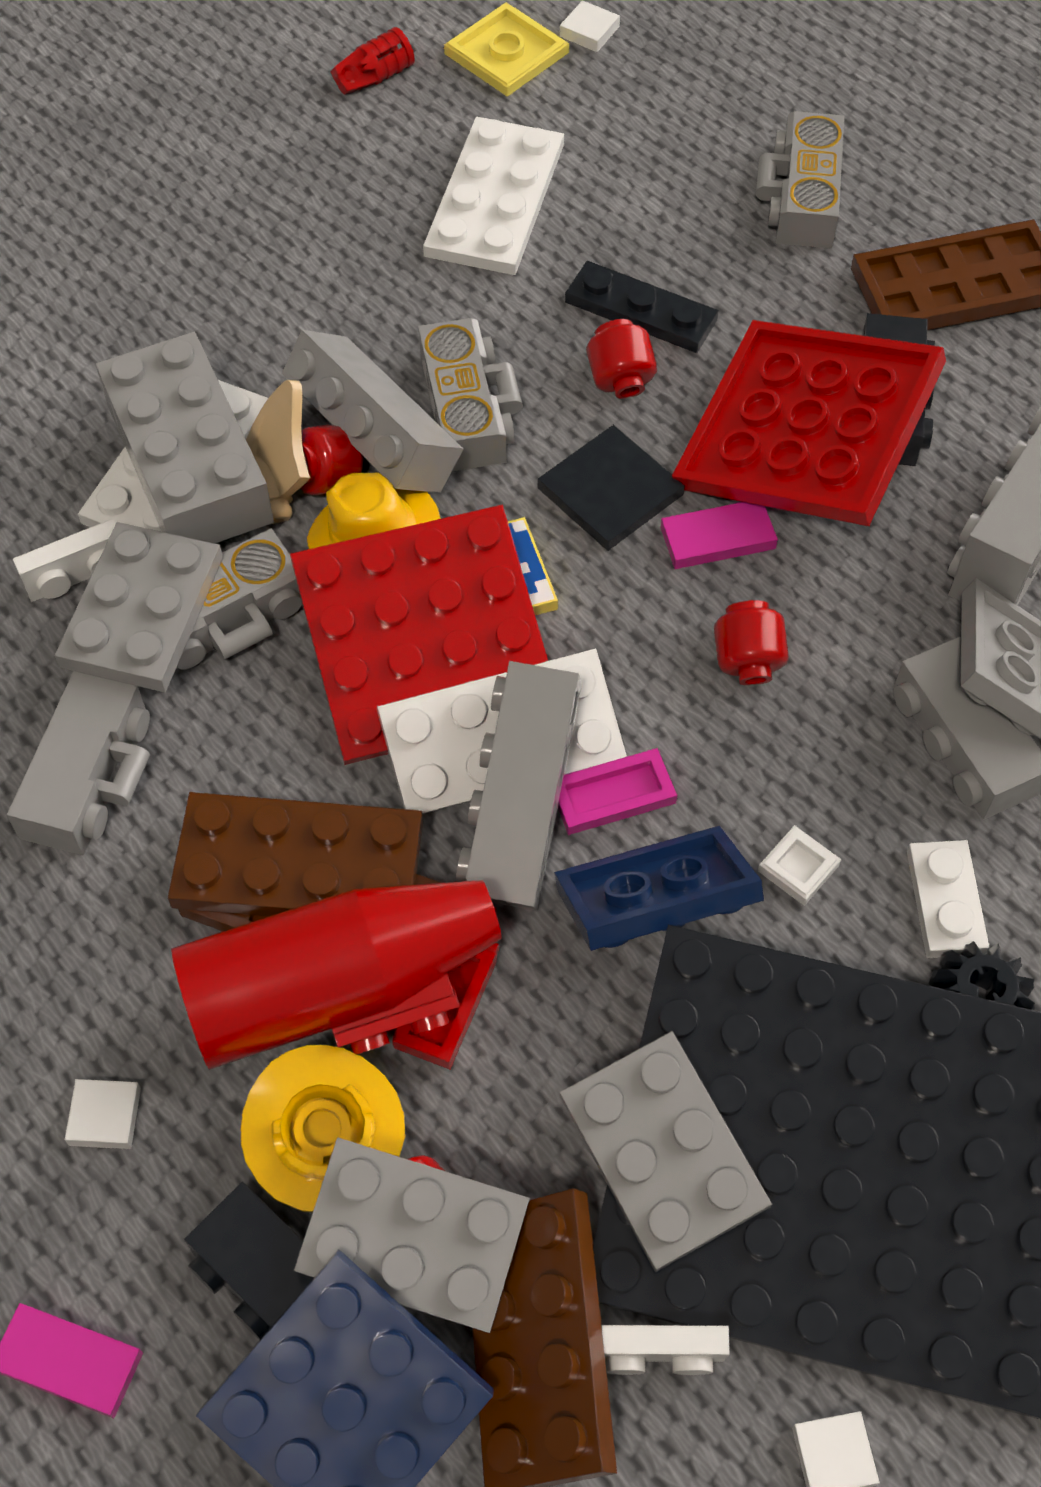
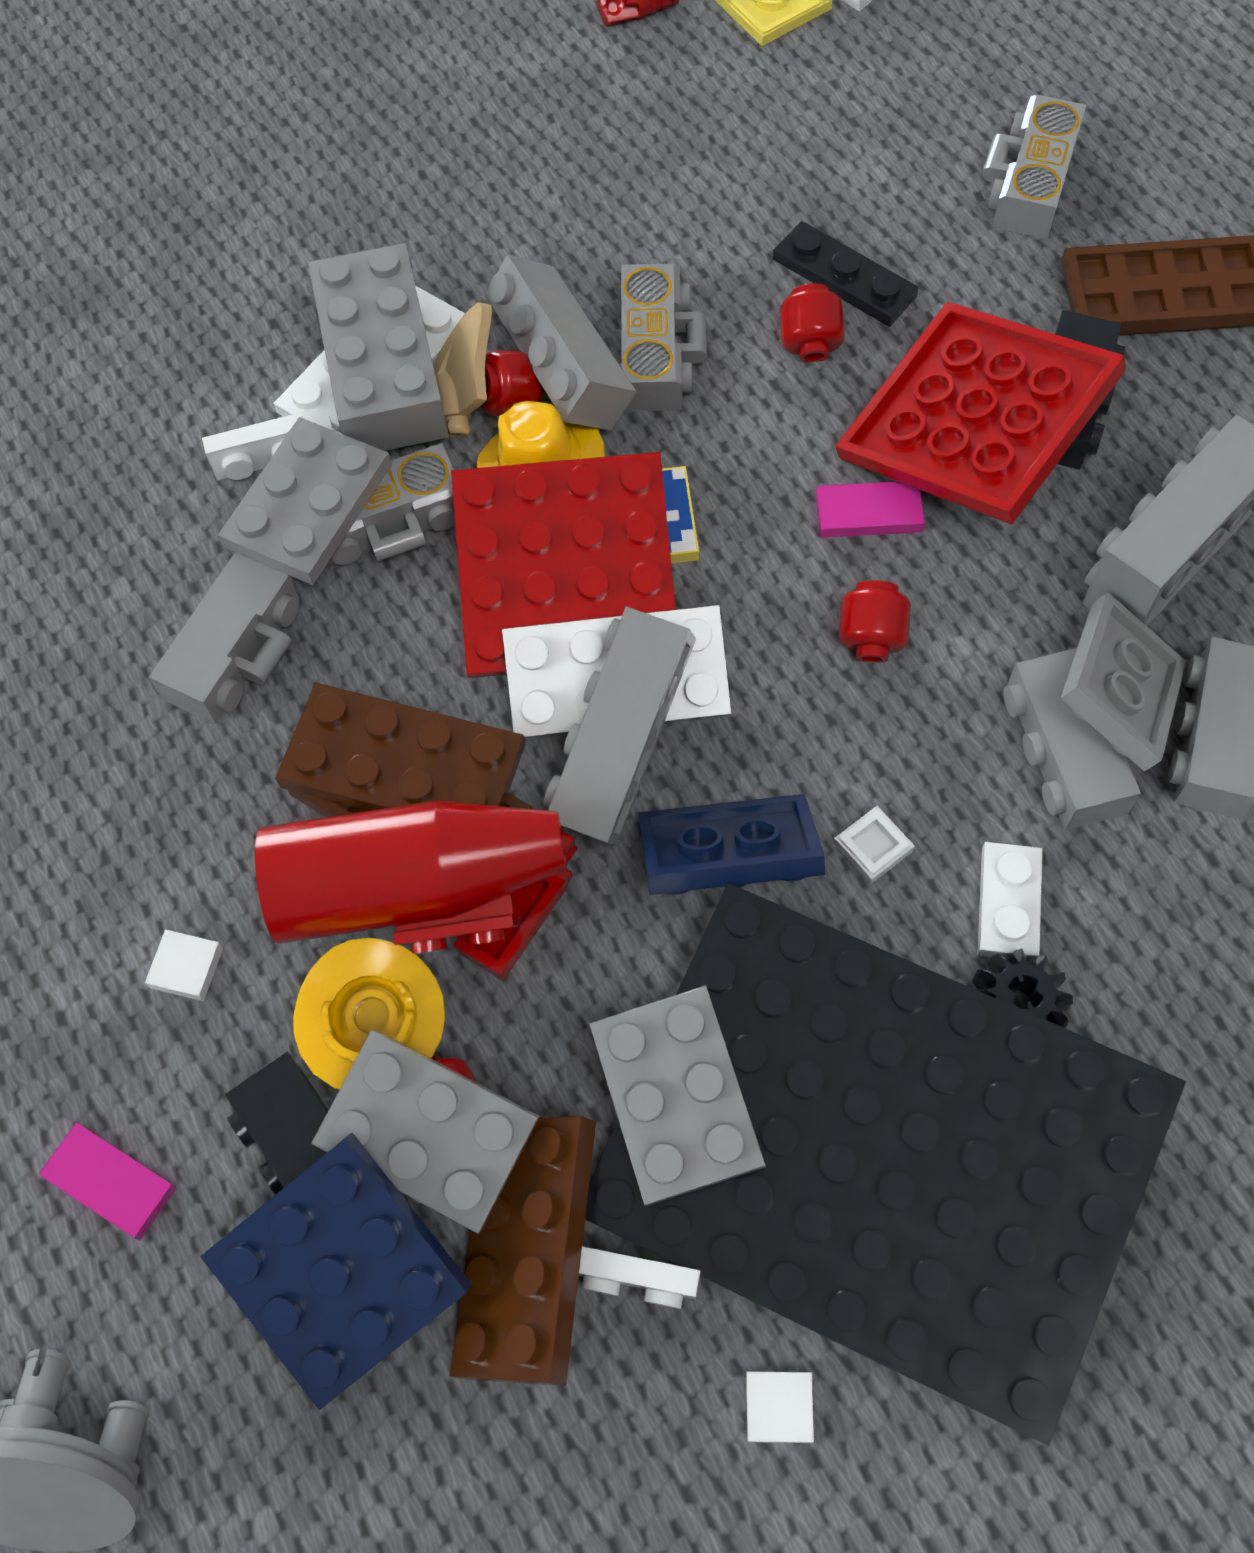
camera: 15 degrees right, 5 degrees up
(494, 196) = (727, 144): white plate -> none
(610, 487) = (775, 448): black tile -> none
(615, 791) = (713, 744): dark pink tile -> none

